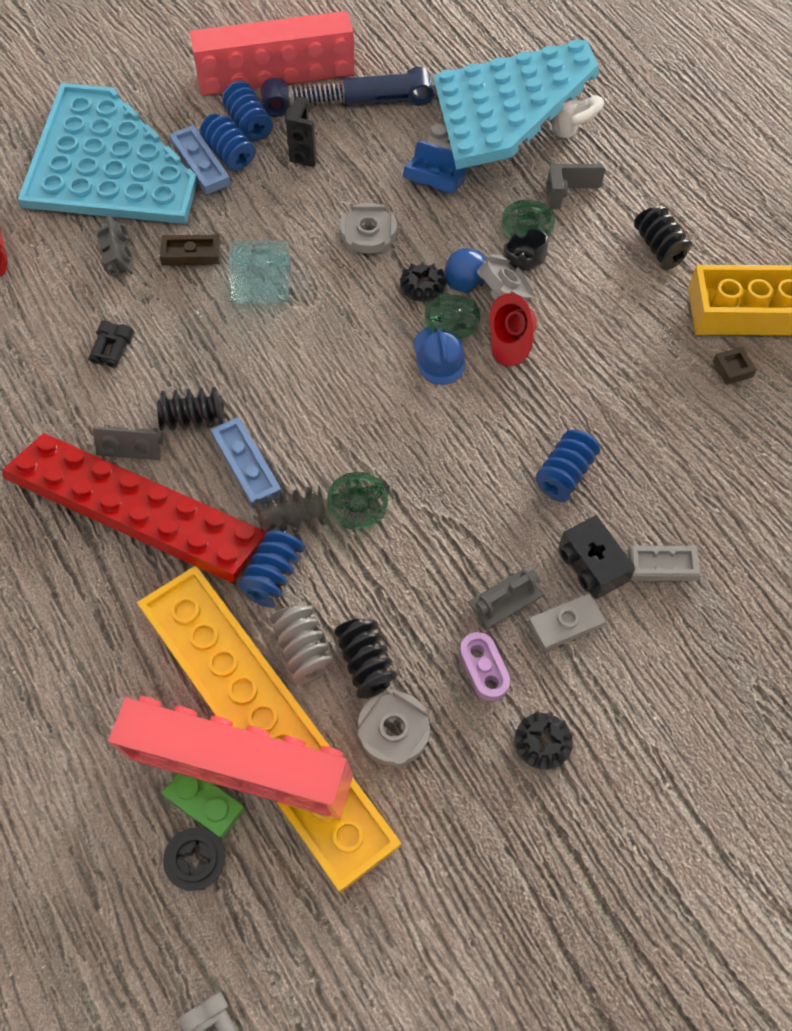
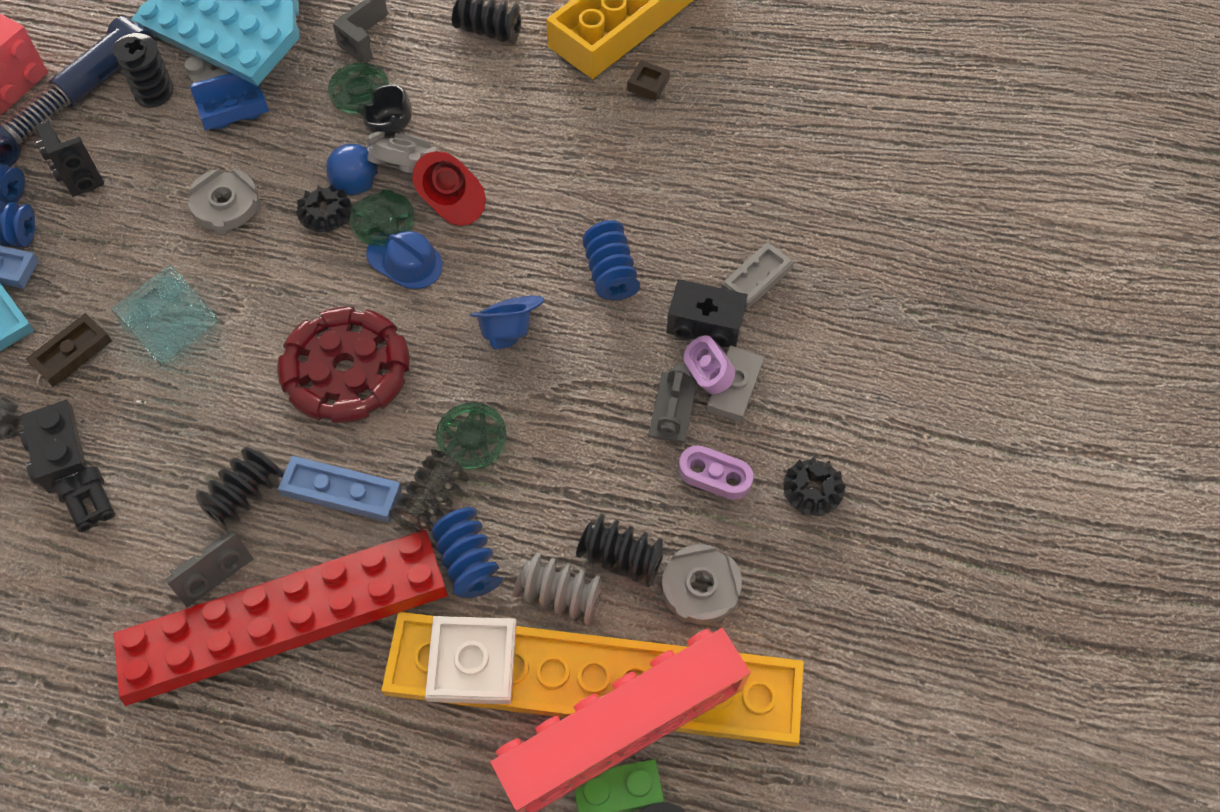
camera: 45 degrees left, 0 degrees up
(122, 295) = (52, 444): none -> black bracket
(200, 633) = (471, 660): none -> white plate
(330, 372) = (336, 346): none -> dark red plate
(402, 110) = (143, 69): none -> black piece
(455, 446) = (507, 320): none -> blue piece
(557, 592) = (709, 365): none -> lavender plate

